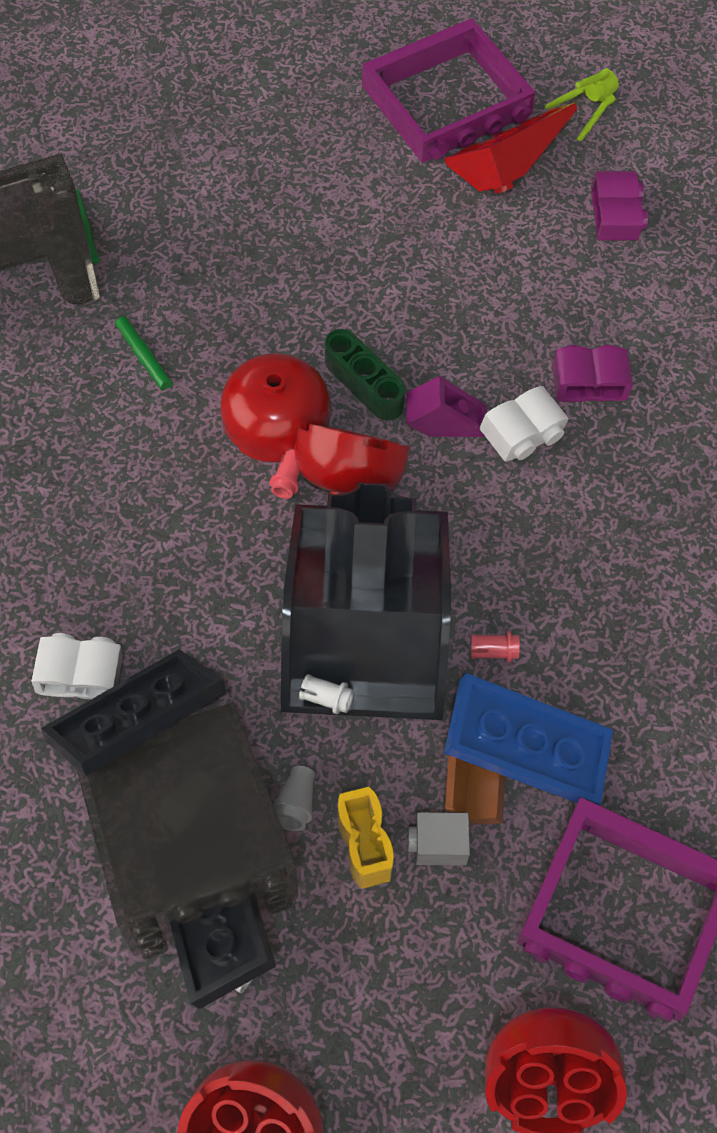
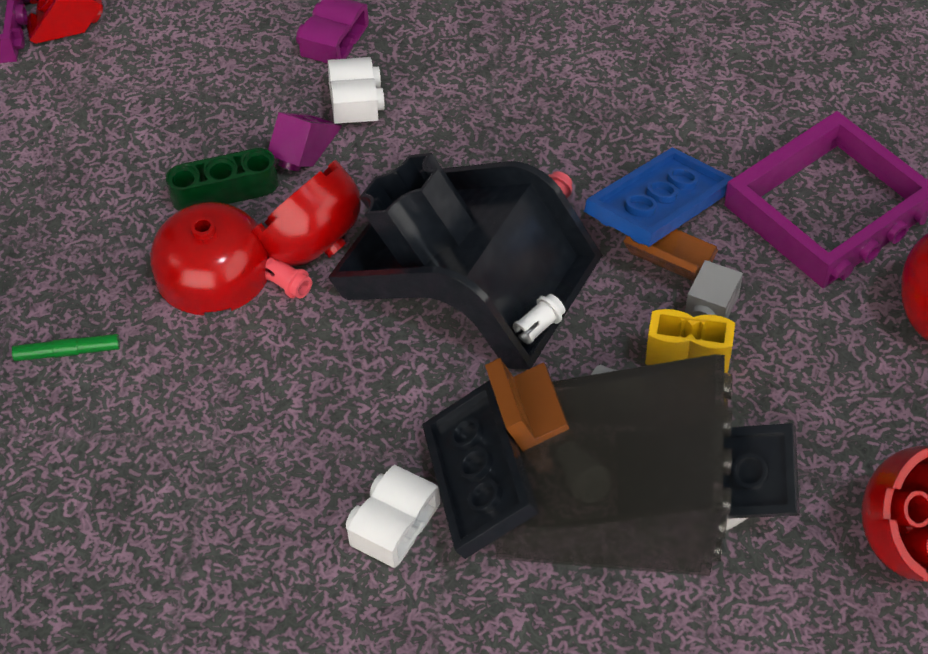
camera: 60 degrees left, 10 degrees down
(206, 717) = (527, 403): none -> dark orange panel

